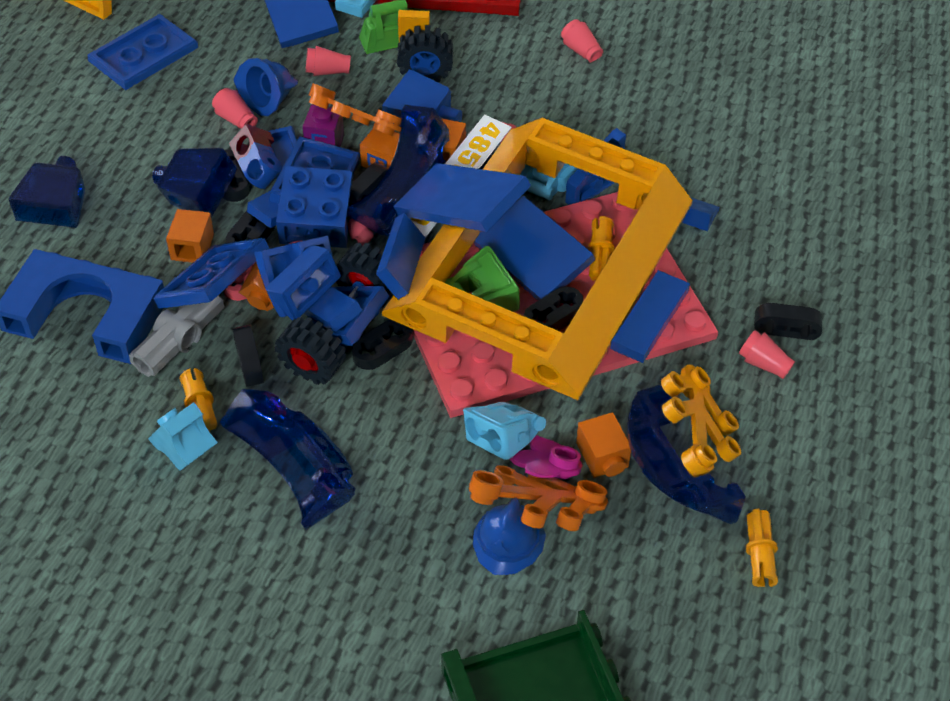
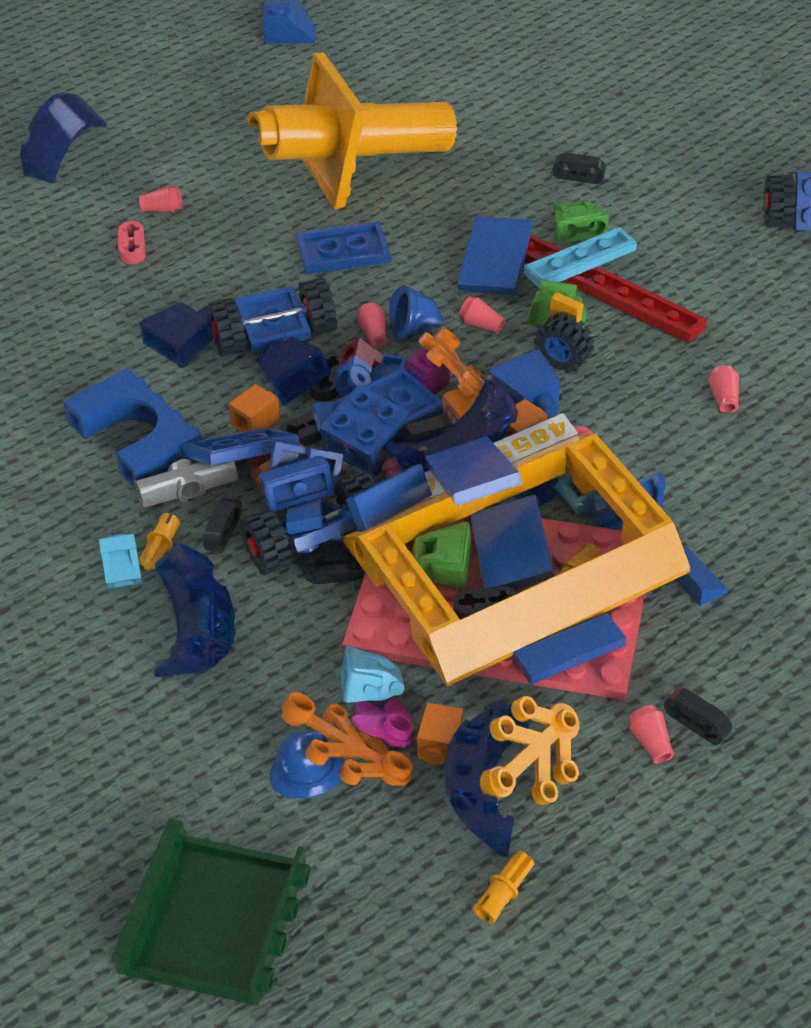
camera: 35 degrees right, 5 degrees down
(138, 140) = (272, 317): none -> plate

